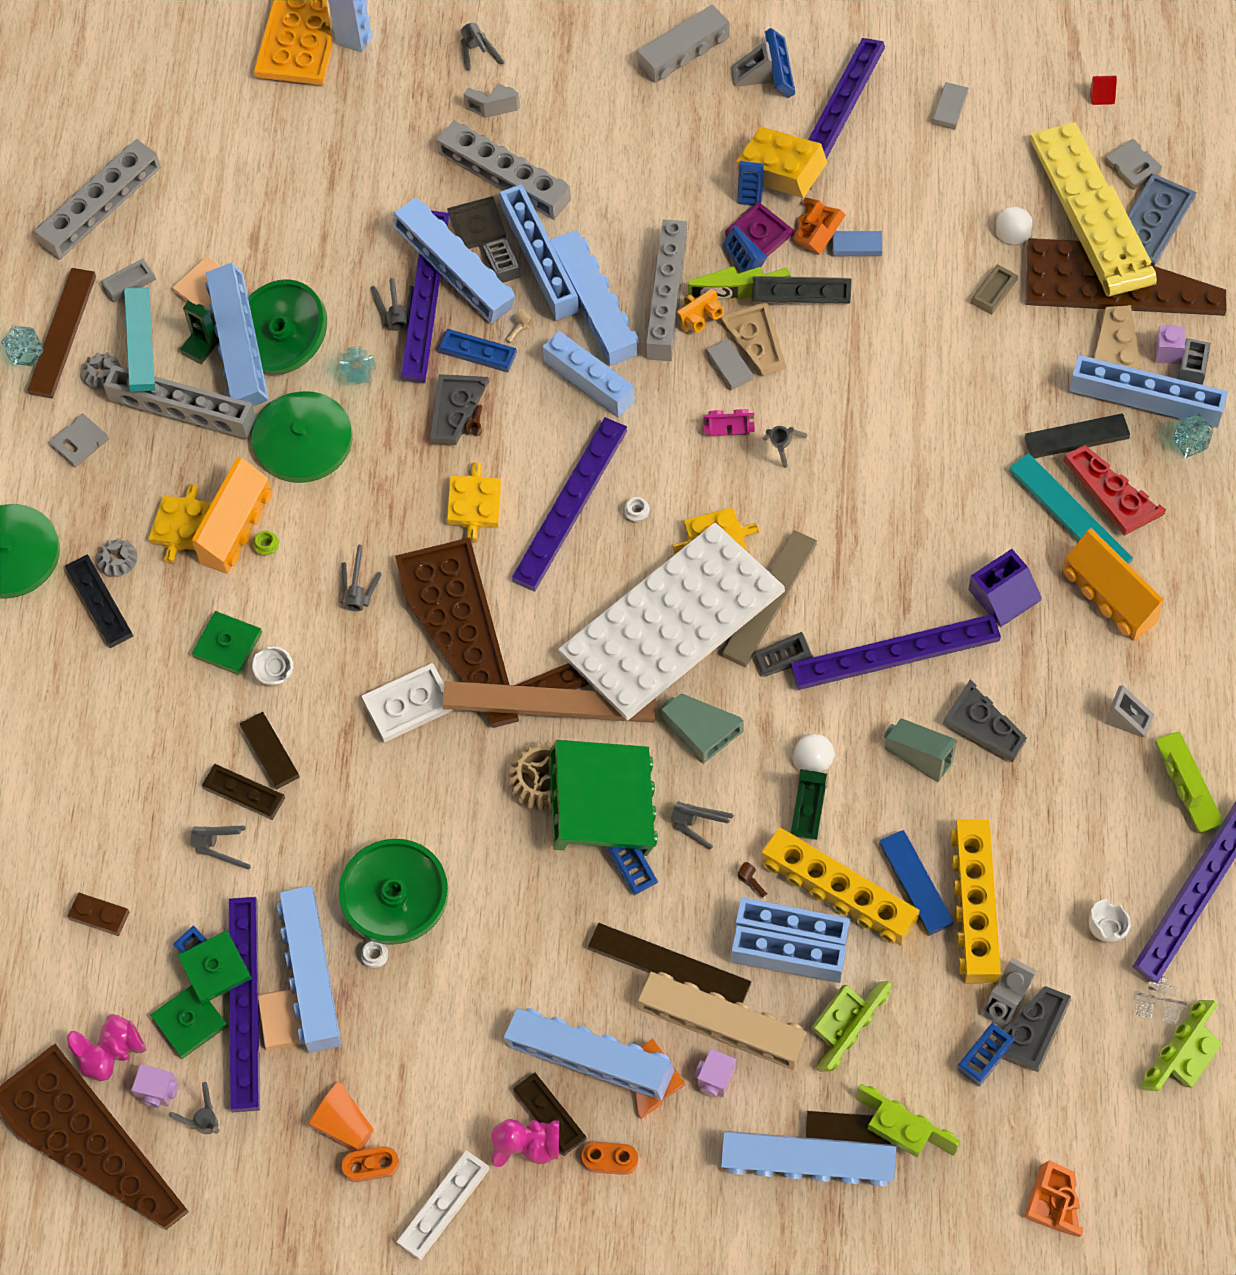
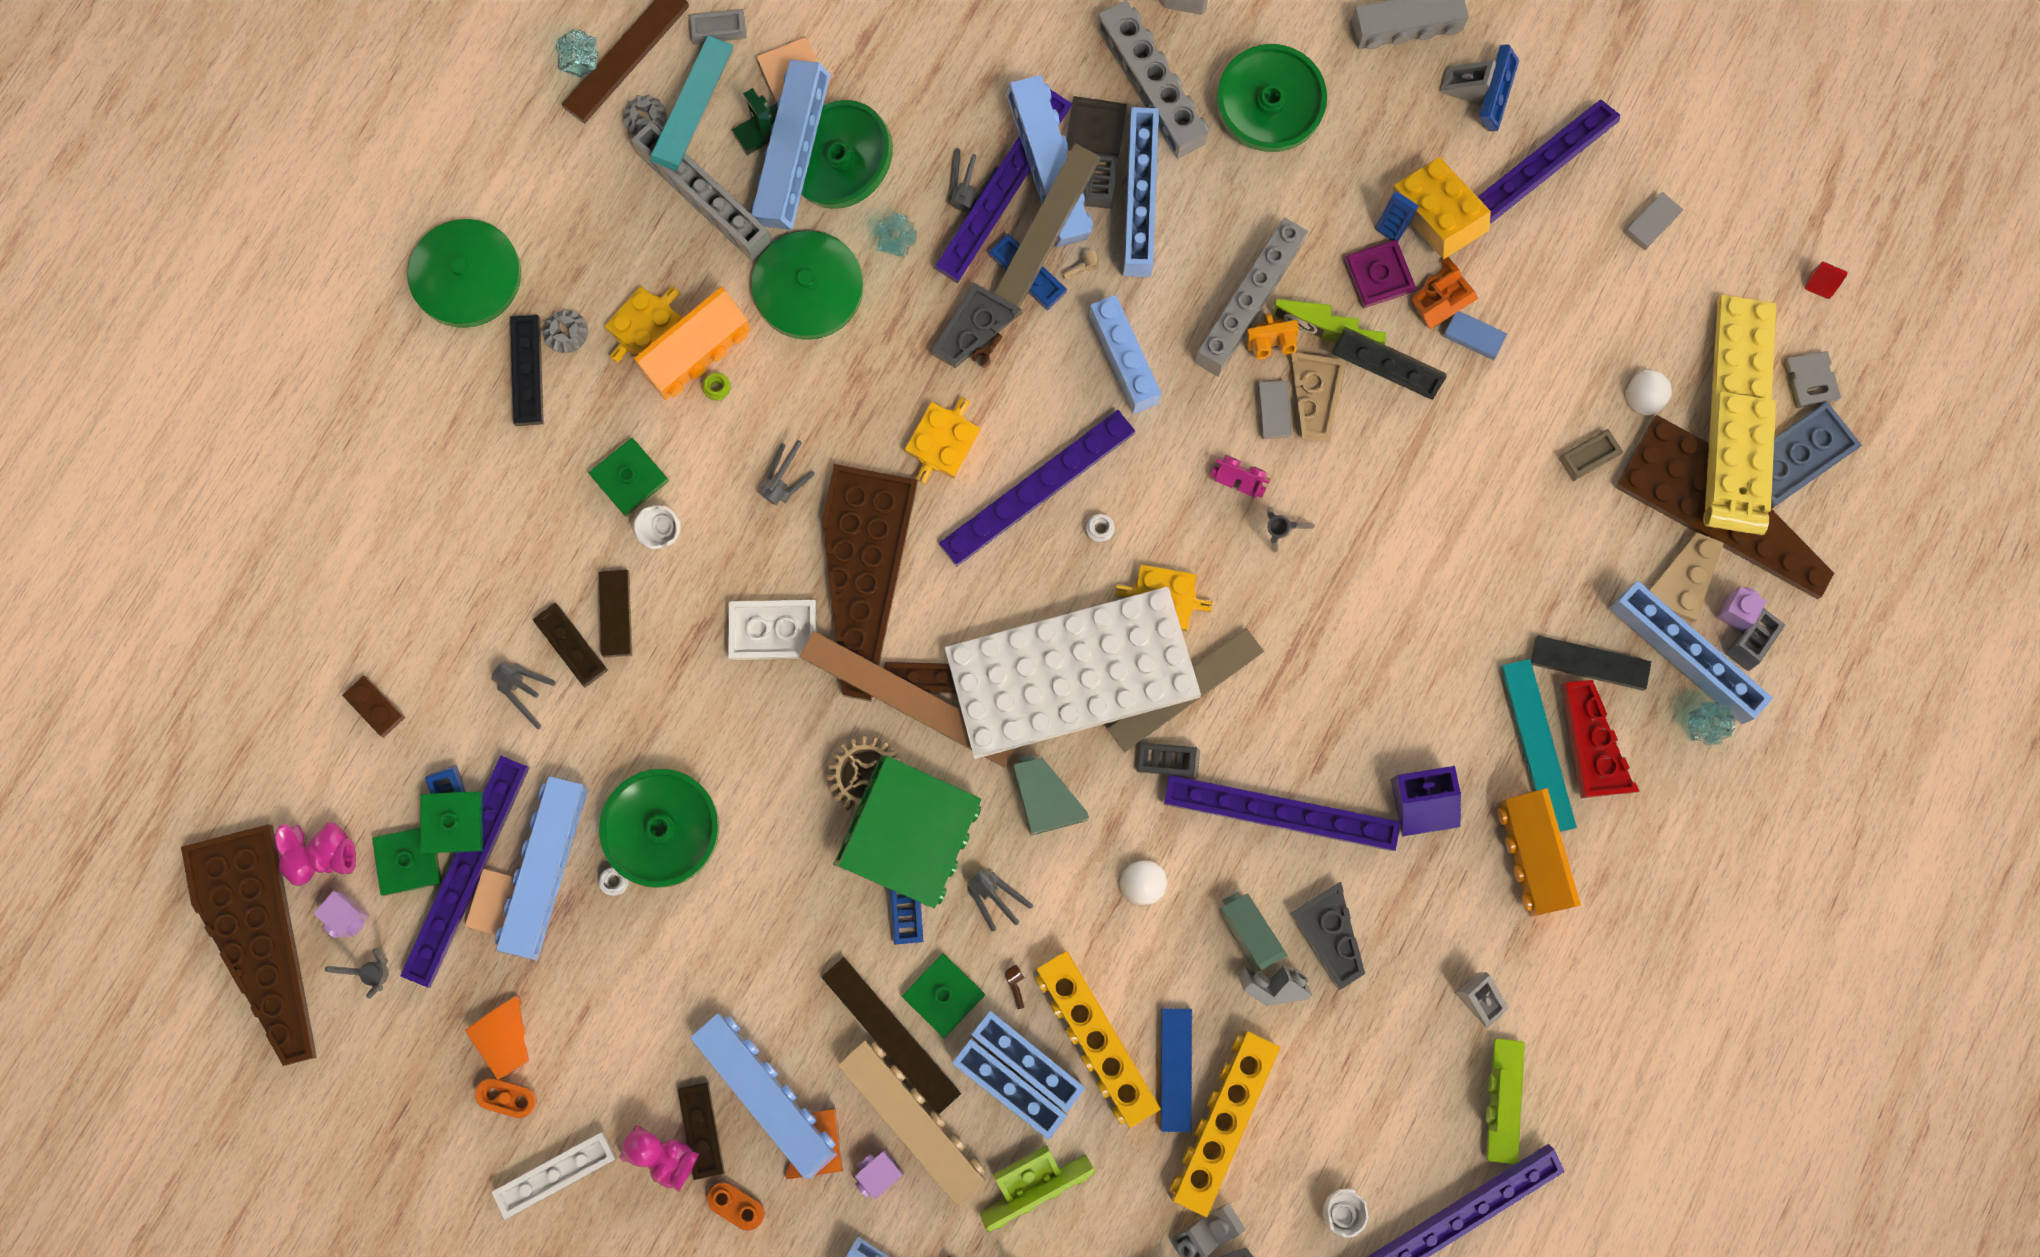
camera: 20 degrees right, 15 degrees up
(83, 436) = (594, 182): light grey piece -> none
(477, 303) = (1047, 225): none -> dark tan tile
(595, 299) = (1172, 269): light blue brick -> none
(606, 142) = (1271, 97): none -> green dish
(696, 915) = (943, 995): none -> green plate
(756, 256) = (1360, 298): blue slope -> none
(809, 804) = (1111, 936): dark green bracket -> none
(966, 778) = (1281, 988): none -> light grey slope

